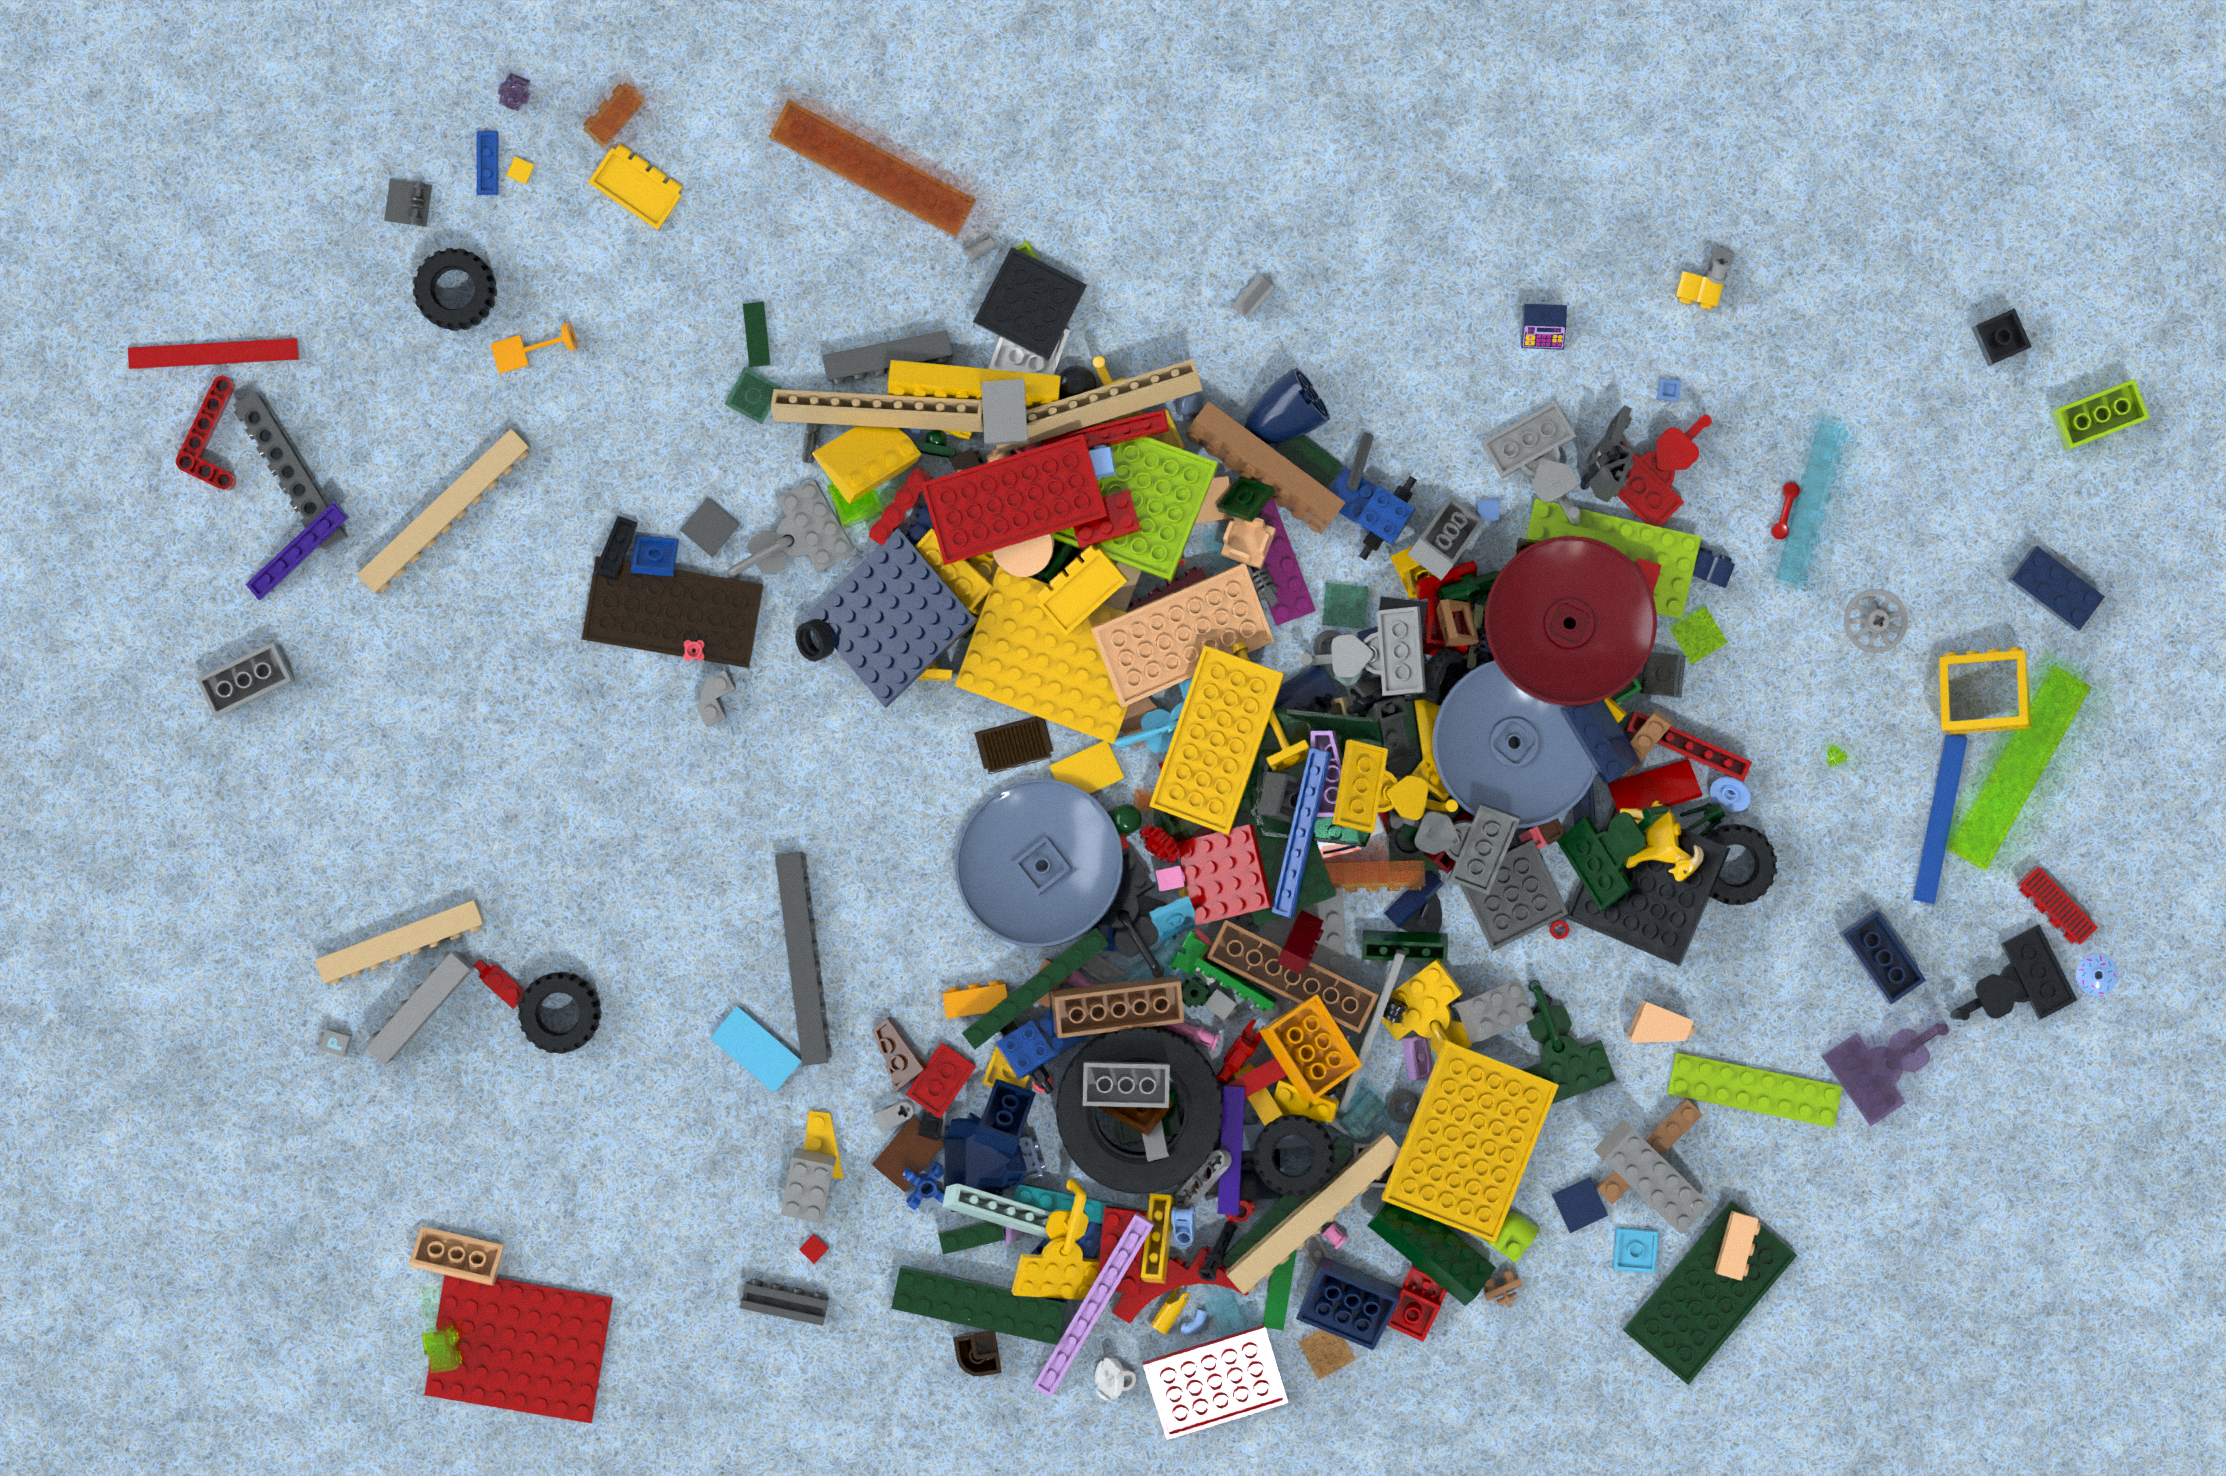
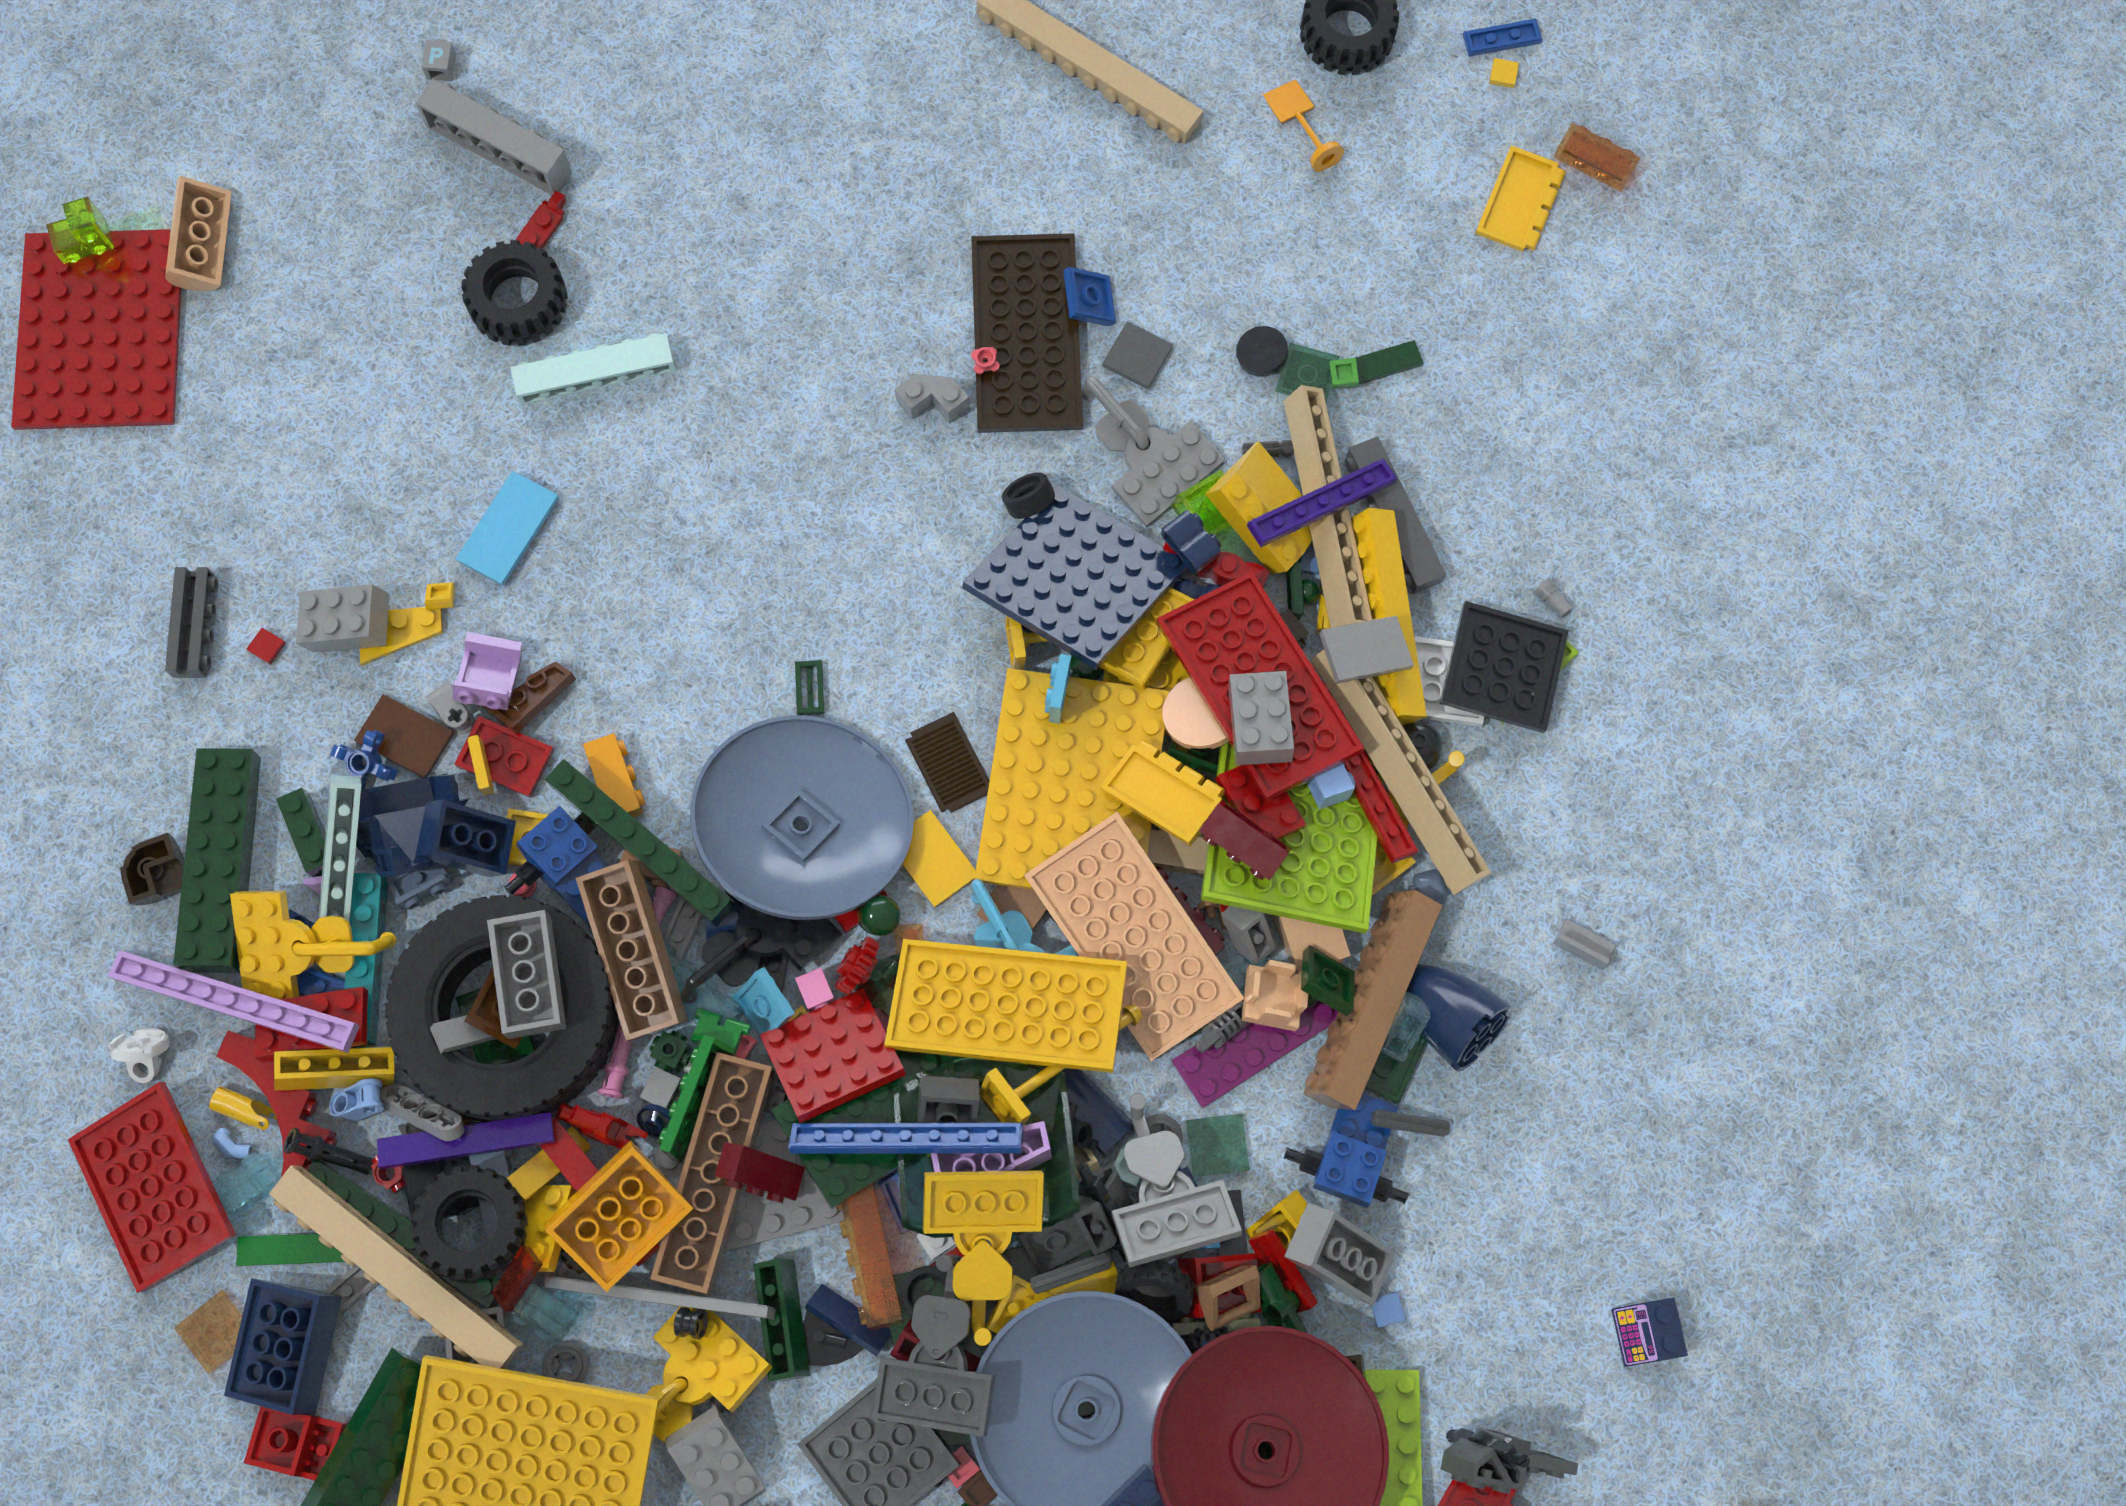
camera: 80 degrees right, 15 degrees down
(400, 941) = (571, 107): tan brick -> none
(514, 92) = (1593, 45): clear purple brick -> none
(616, 548) = (1088, 251): black plate -> none
(635, 961) = (593, 368): none -> light aqua brick
(727, 427) = (1262, 351): none -> black tile
(762, 368) = (1344, 373): none -> bright green plate
(800, 1109) = (440, 595): none -> yellow tile
(802, 960) = (629, 560): dark grey brick -> none
(872, 169) = (1616, 453): clear orange brick -> none
(873, 1082) = (487, 671): none -> lavender panel
(876, 415) = (1321, 502): none -> dark purple tile
(885, 523) = (1191, 541): none -> dark blue brick
(930, 847) = (808, 665): none -> dark green tile
(930, 1127) = (441, 755): black tile -> none
(948, 1097) = (480, 765): none -> yellow tile
(993, 655) = (1059, 681): none -> medium azure plate
(1046, 506) = (1260, 718): none -> light grey brick
(1136, 539) = (1244, 841): none -> dark red brick
(1199, 548) = (1249, 933): none -> light grey brick
(1245, 1013) = (648, 1126): none -> dark blue piece
(1292, 449) = (1406, 1027): none -> clear light blue brick
(1334, 1235) = (374, 1308): bright pink bush -> none
(1339, 1128) = (516, 1278): none -> clear red plate
(1417, 733) = (1070, 1273): none -> dark grey axle
(1417, 1057) = (635, 1370): lavender slope -> none
(1534, 449) = (1483, 1355): light grey plate -> none

